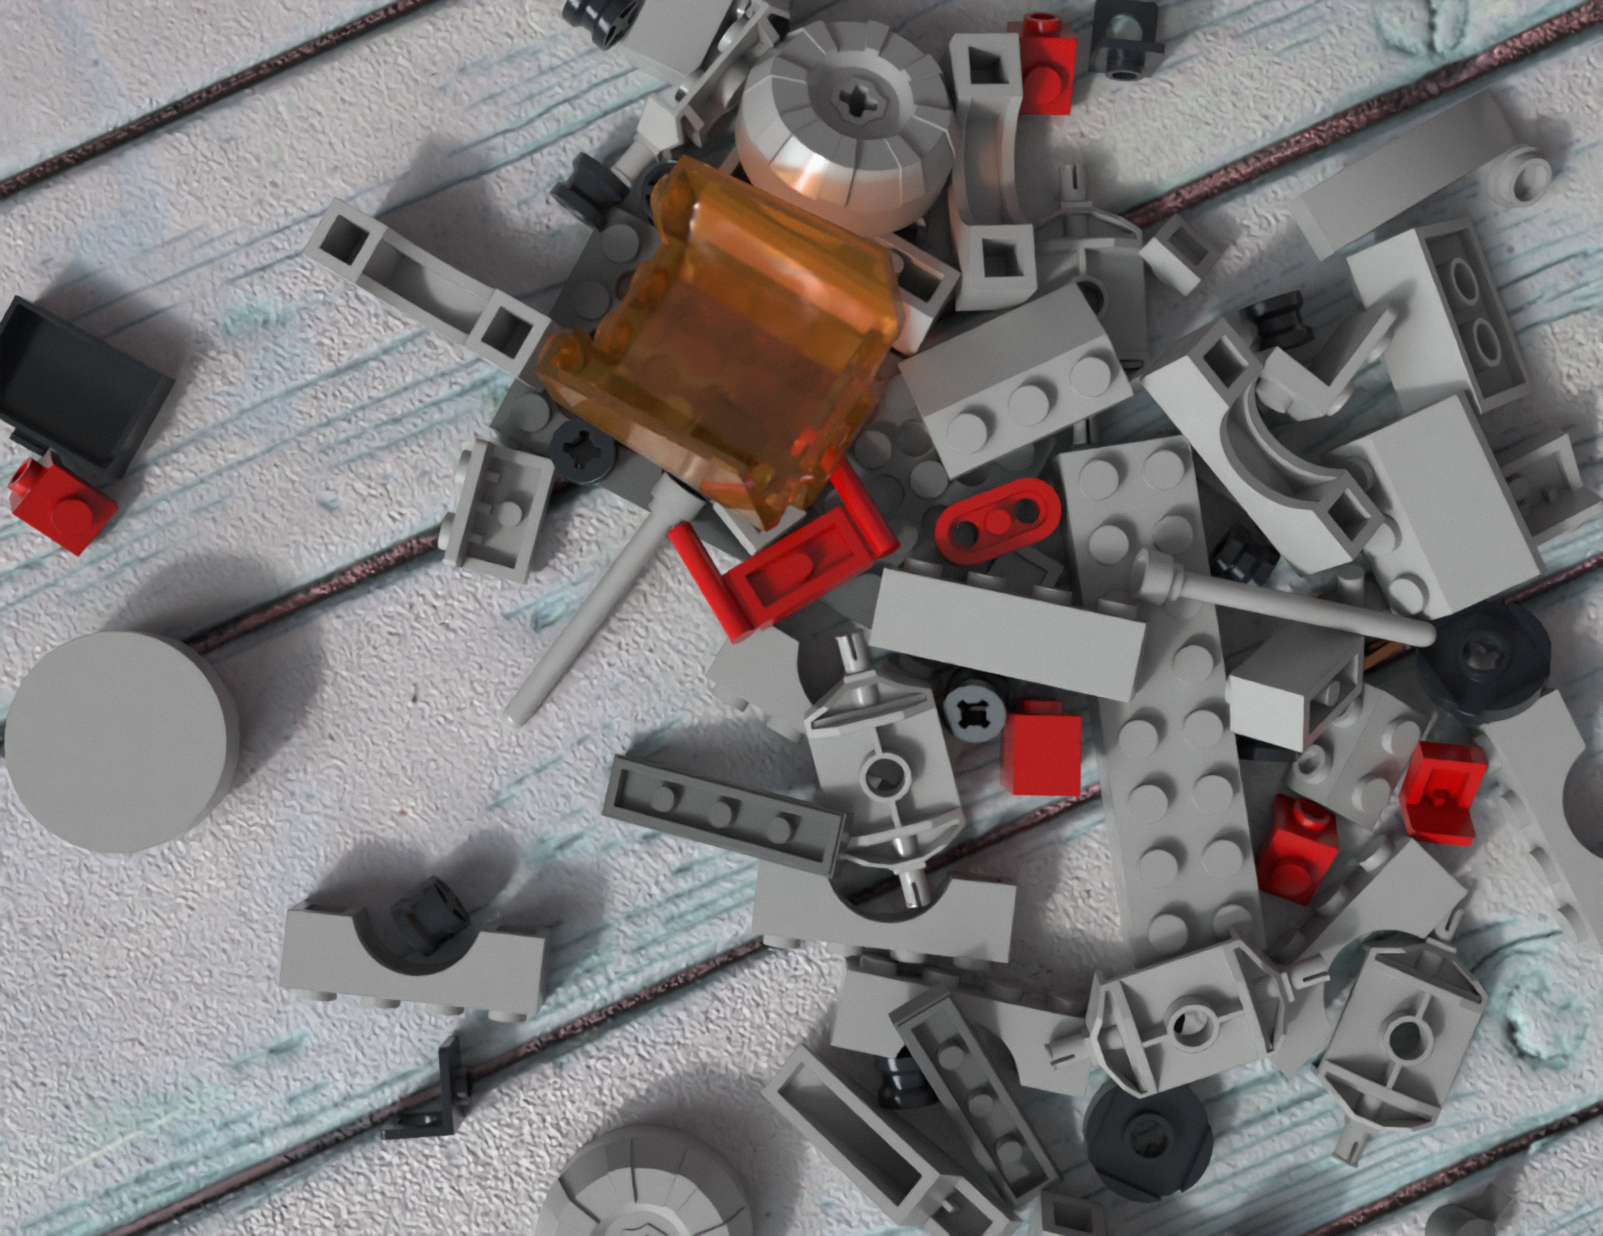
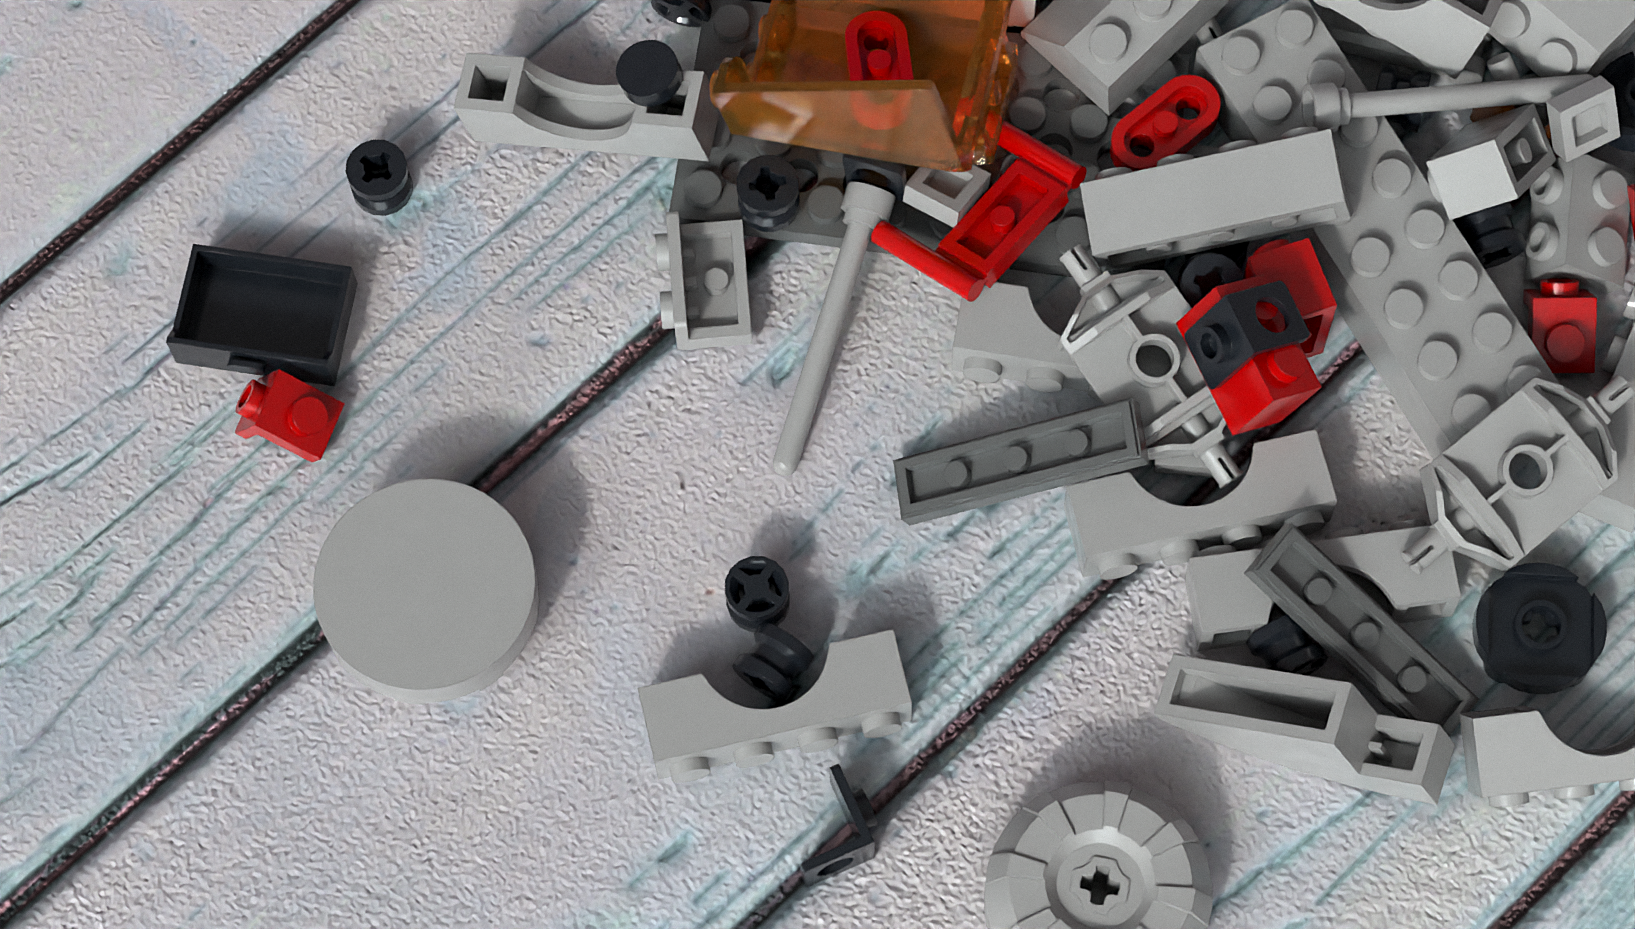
camera: 15 degrees left, 20 degrees down
(234, 294) = (382, 192): none -> black wheel
(429, 848) = (753, 581): none -> black wheel
(494, 302) = (649, 73): none -> black tile
(735, 368) = (882, 32): none -> red plate
(958, 808) = (1233, 335): none -> black bracket
(974, 815) = (1271, 382): none -> red brick
(1405, 671) = (1583, 118): none -> light grey plate

